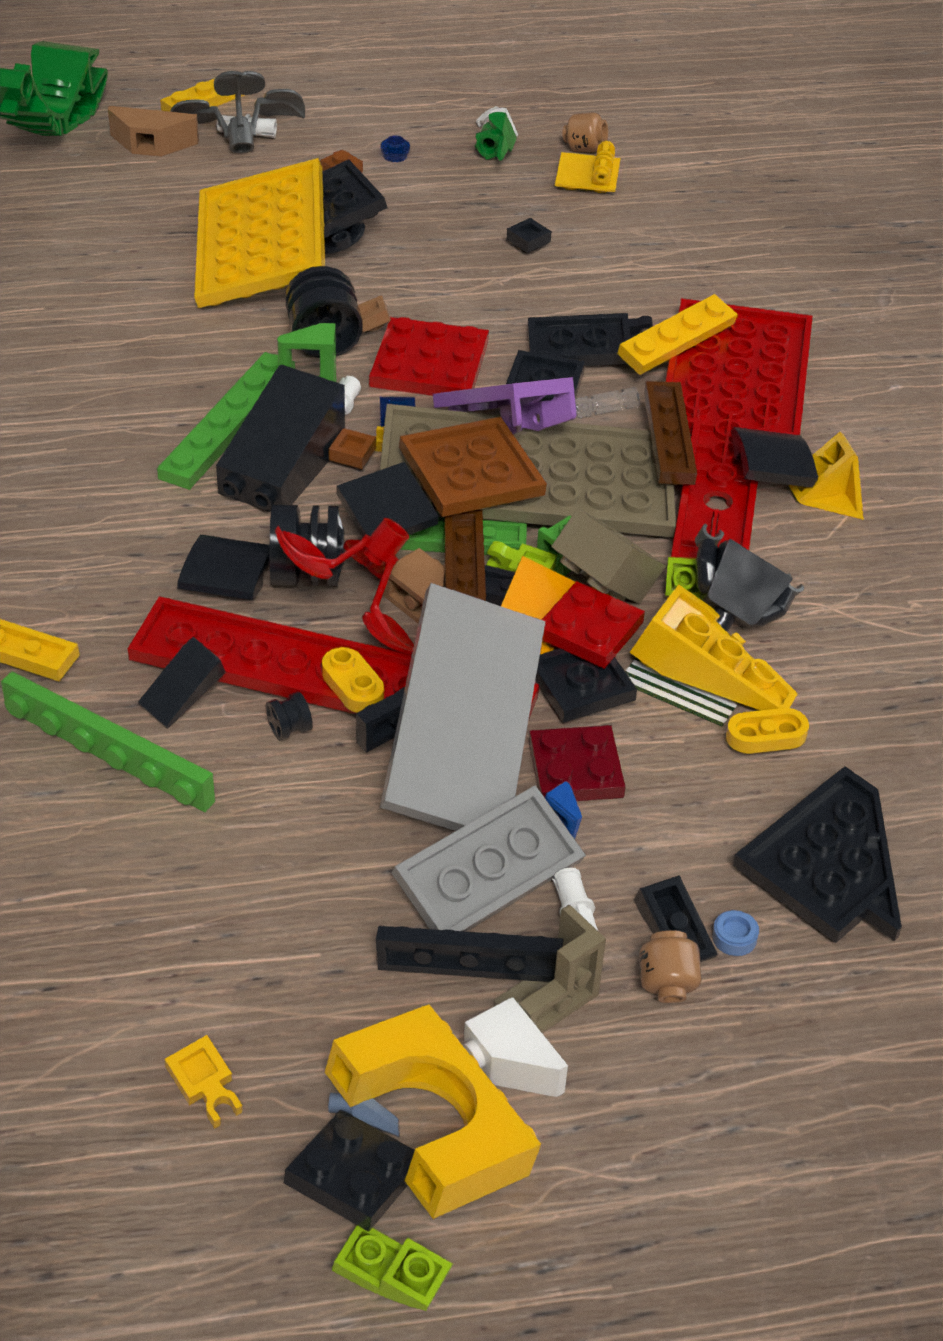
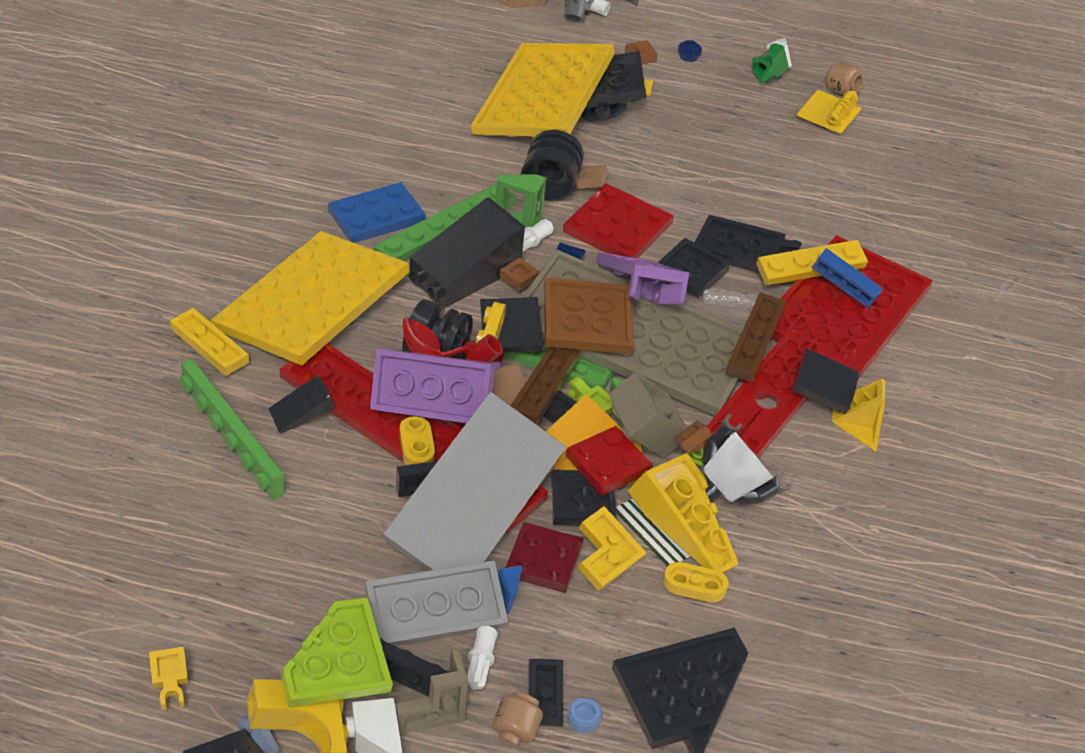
camera: 20 degrees right, 0 degrees up
(115, 552) = (310, 297): none -> yellow plate
(135, 430) = (376, 212): none -> blue plate
(225, 567) = (375, 329): black slope -> none
(289, 715) = (361, 453): black wheel -> none
(343, 603) = (430, 384): none -> medium lavender plate
(371, 501) = (493, 319): none -> yellow plate
(425, 972) = (338, 658): none -> lime plate
(528, 235) = (749, 149): black plate -> none
(658, 725) = (615, 547): none -> yellow plate
(676, 563) = (693, 437): none -> dark orange plate
(730, 337) = (847, 277): none -> blue piece

